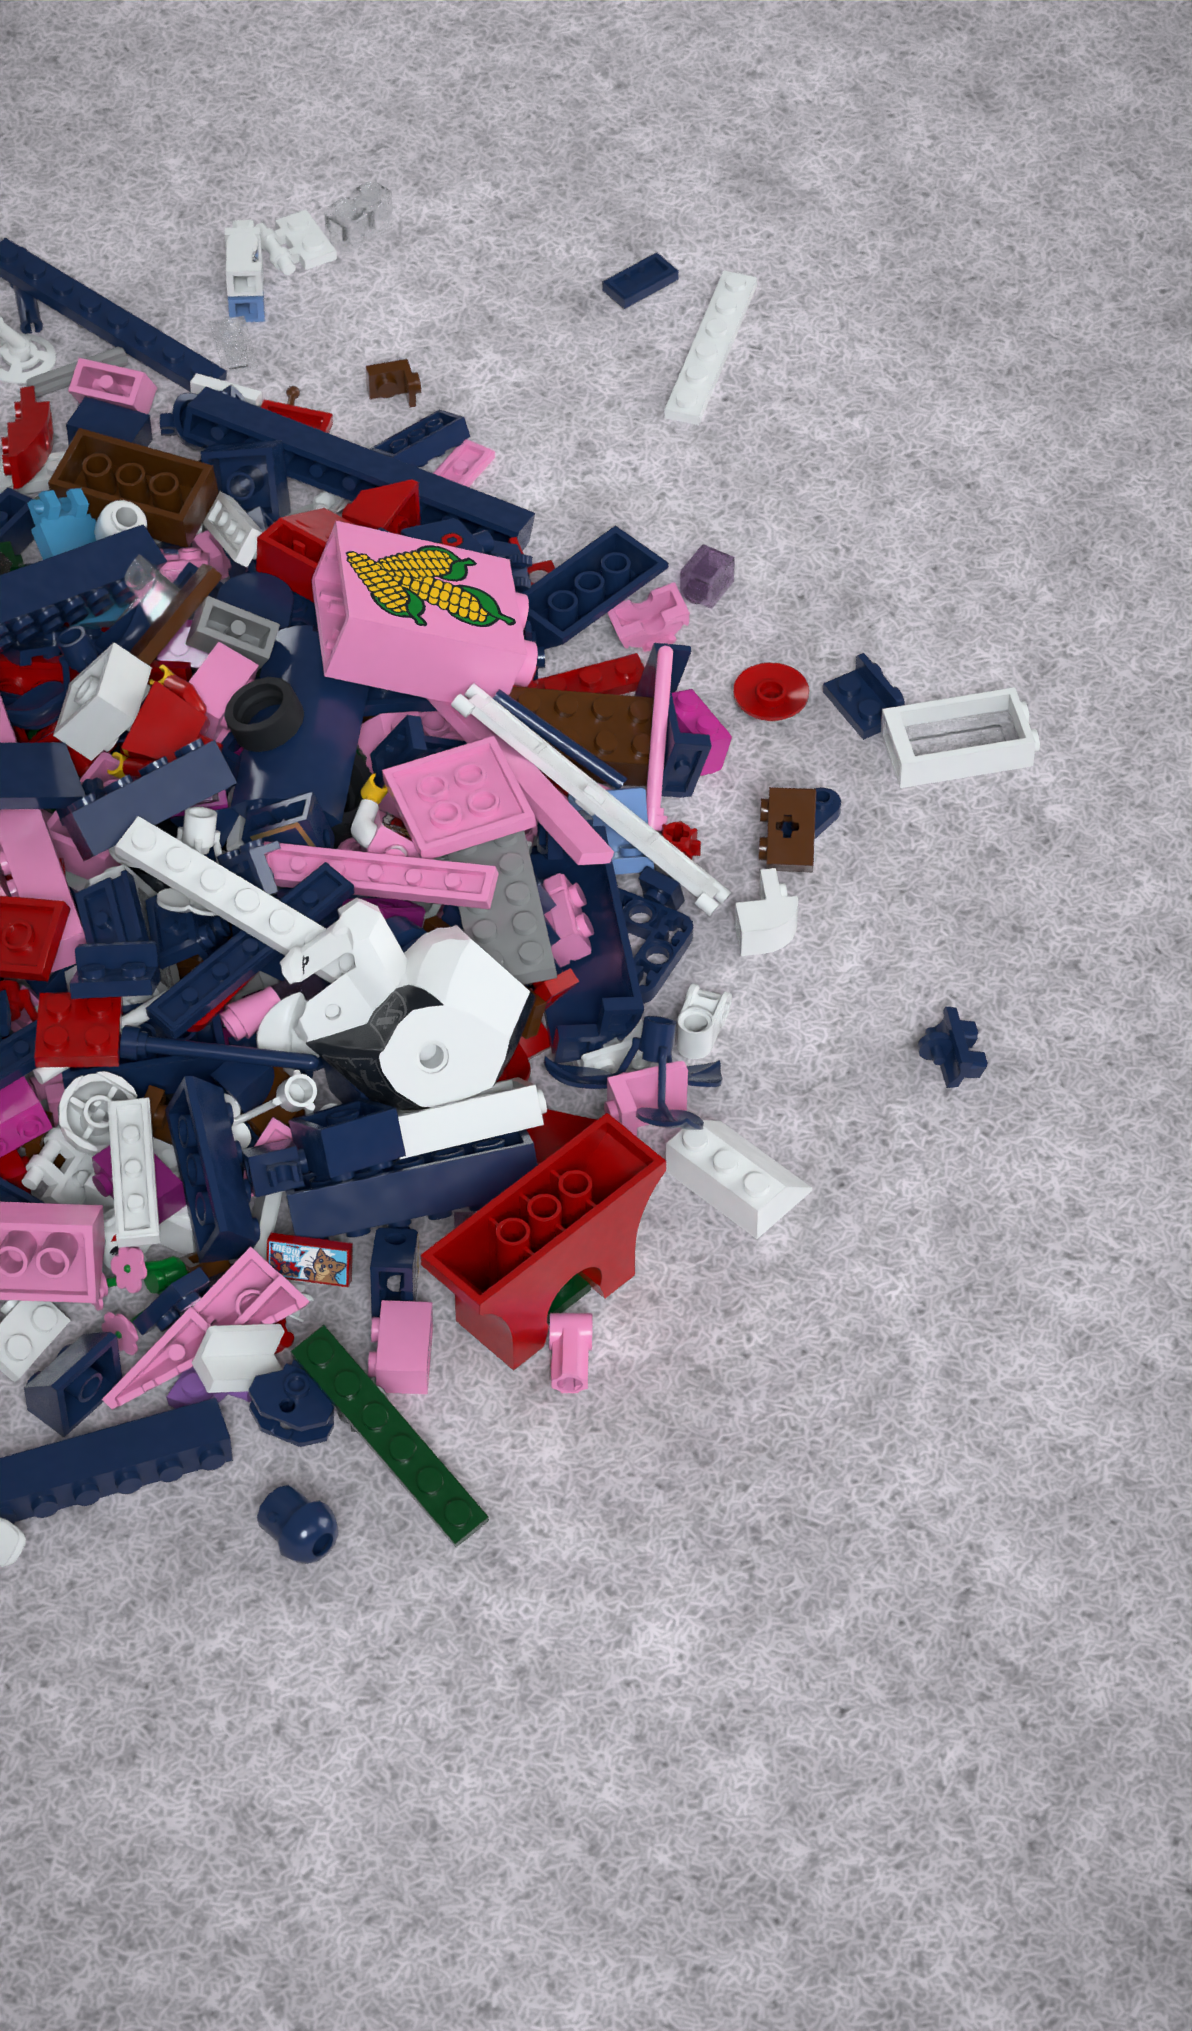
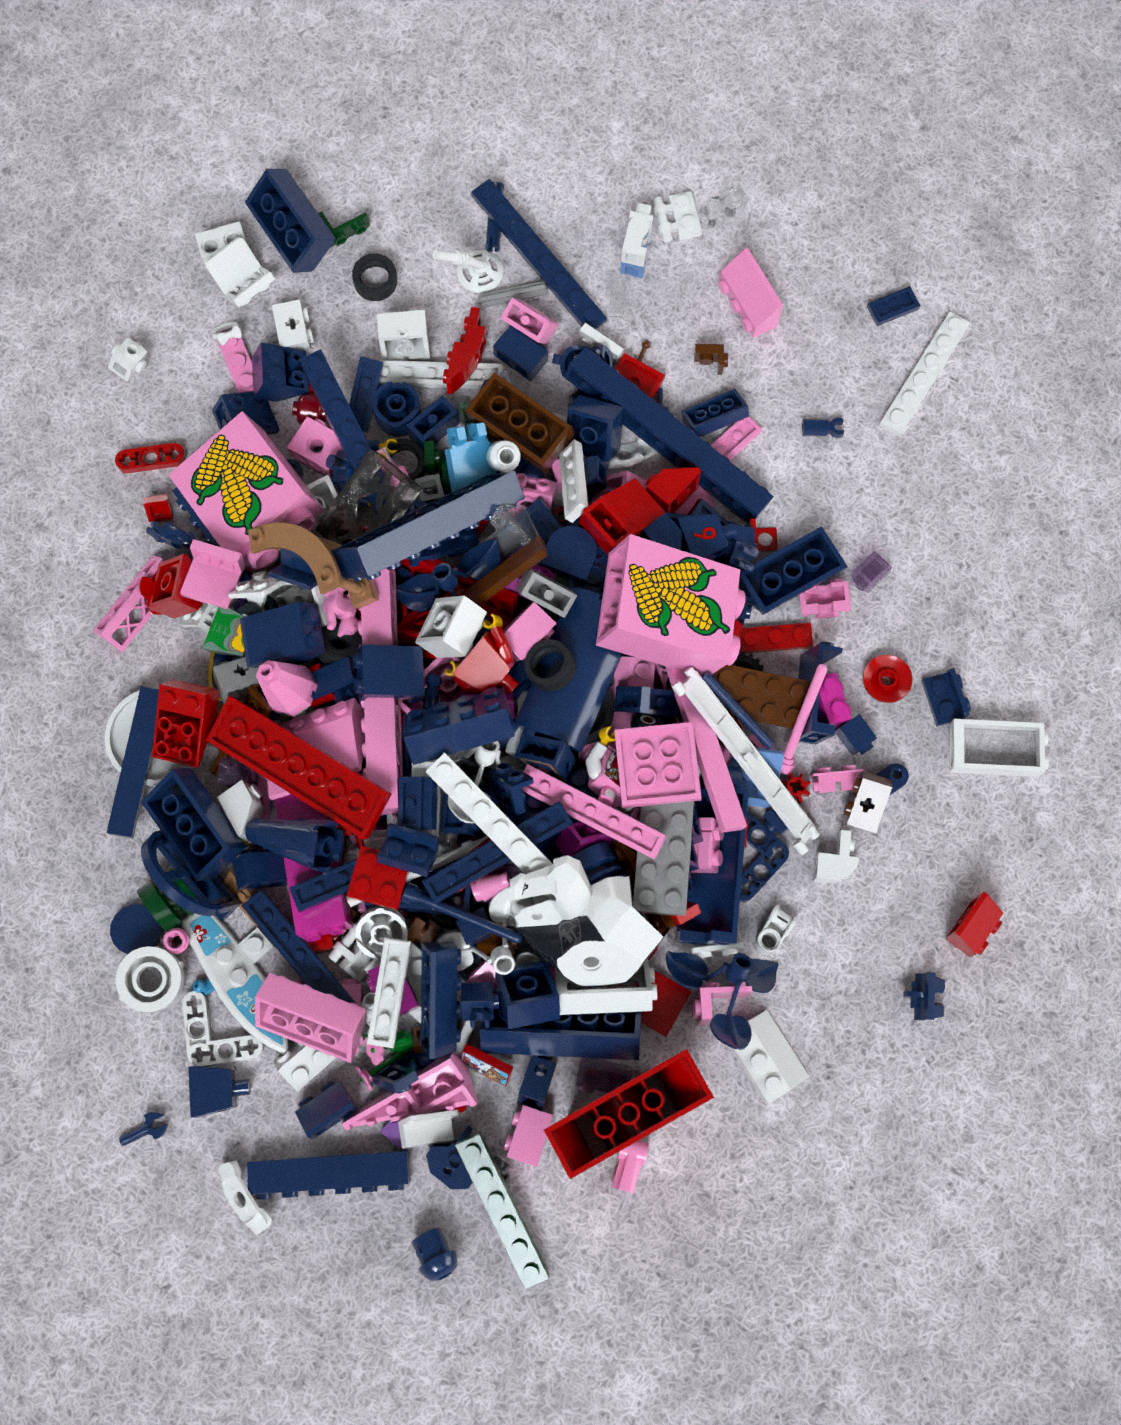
camera: 15 degrees right, 25 degrees up
(430, 297) = (750, 294): none -> bright pink slope
(582, 432) = (822, 427): none -> dark blue bar
(719, 823) = (827, 779): none -> bright pink hinge
(746, 764) = (856, 735): none -> dark blue brick
(996, 941) = (975, 925): none -> red slope

